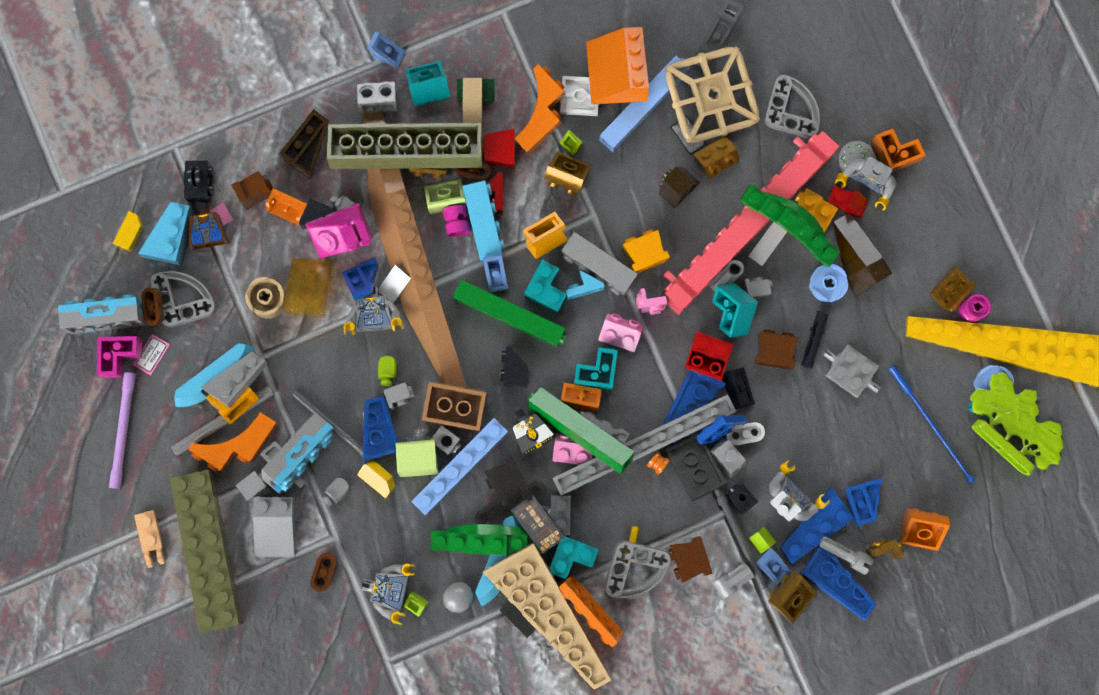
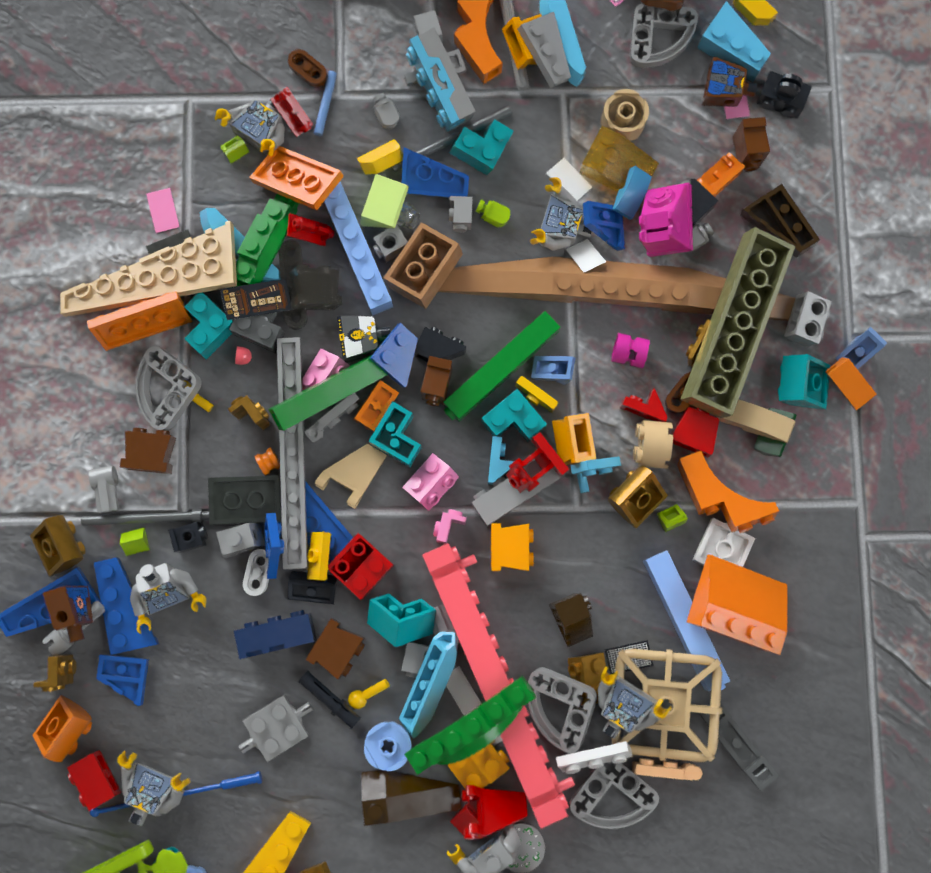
camera: 115 degrees right, 0 degrees up
(274, 526) = (378, 37): light grey slope -> none
(333, 267) = (631, 196): none -> dark azure slope
(333, 323) = (570, 178): none -> white sticker
(339, 396) = (483, 151): none -> teal brick
(347, 545) = (325, 103): none -> medium blue bar
(368, 566) = (291, 112): none -> red hinge
(415, 48) = (851, 382): none -> orange hinge
(424, 535) = (297, 177): none -> orange plate
(444, 195) = (664, 350): yellowish green slope -> none
(458, 597) = (221, 193): light grey hair -> none
(461, 509) = (308, 230): none -> red hinge
(482, 219) = (619, 376): medium azure brick -> none
(490, 640) = (162, 210): none -> bright pink sticker
(521, 278) = (535, 394): none -> yellow plate
(523, 175) = (653, 444): none -> tan brick
(535, 394) = (396, 354): none -> wing
(543, 356) = (436, 381): none -> reddish brown hips
(555, 205) = (589, 468): none -> medium azure plate
(569, 249) = (544, 456): none -> red tile
(583, 520) = (243, 356): none -> coral hinge
(625, 485) = (244, 406): none -> pearl gold bracket
(638, 393) = (354, 472): none -> tan flag
(714, 389) = (318, 555): none -> yellow plate
(726, 120) = (626, 705): none -> torso
(737, 162) = (573, 698): none -> light grey beam
(757, 76) = (667, 770): none -> light nougat hinge
(772, 130) = (594, 758): none -> white plate
(772, 268) = (429, 683): none -> medium azure brick
(773, 566) = (100, 539): medium blue slope -> none
(785, 398) = (275, 634): none -> dark blue wedge
(804, 319) = (358, 698): none -> yellow bar
(836, 557) = (69, 610): none -> reddish brown torso
(839, 186) = (495, 810): none -> red flag
(937, 442) = (148, 789): none -> torso
(949, 487) = (93, 780): none -> red brick

